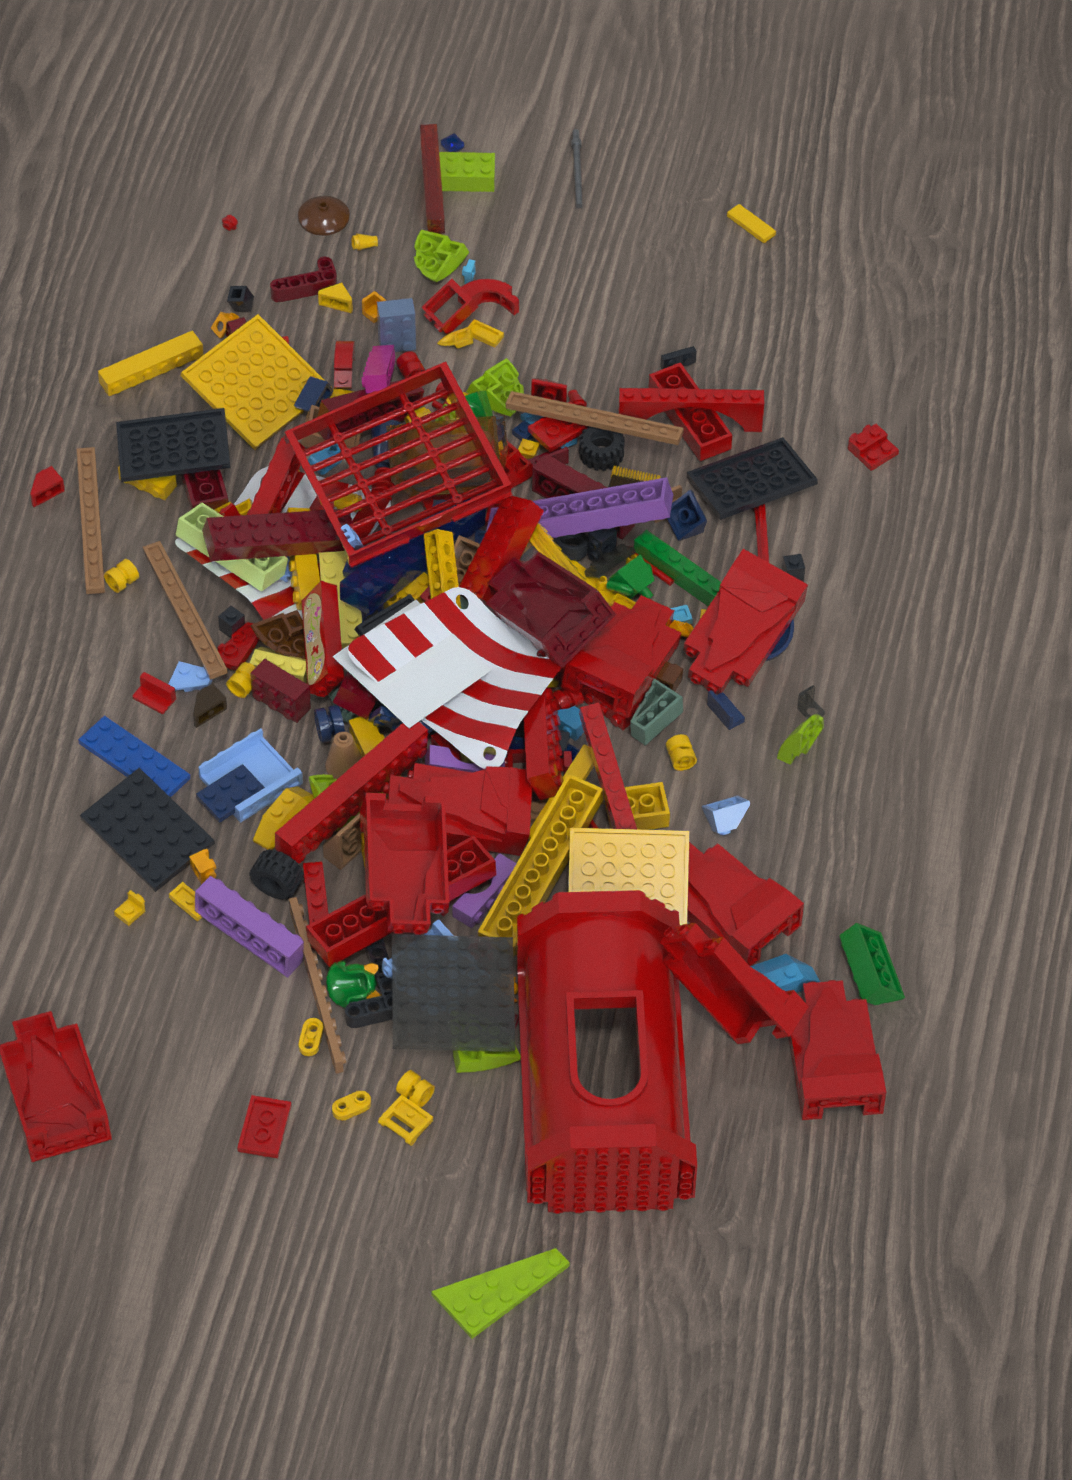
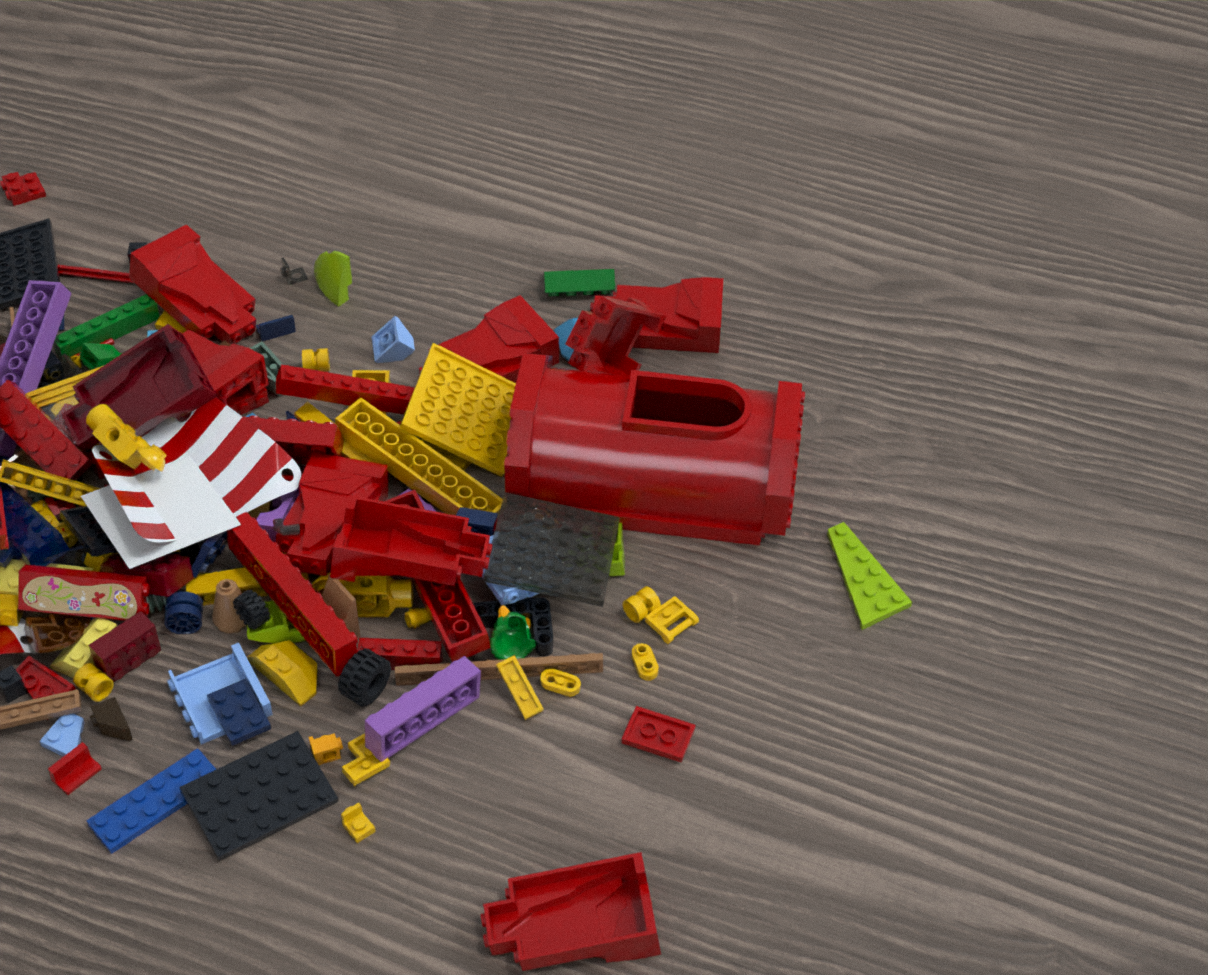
camera: 80 degrees left, 5 degrees down
(293, 1002) = (519, 687): none -> yellow tile
(329, 767) = (251, 609): none -> black tyre
(420, 766) = (279, 527): none -> clear smoke arm
(476, 609) = (122, 440): none -> yellow brick
(476, 920) = (479, 520): none -> dark blue panel

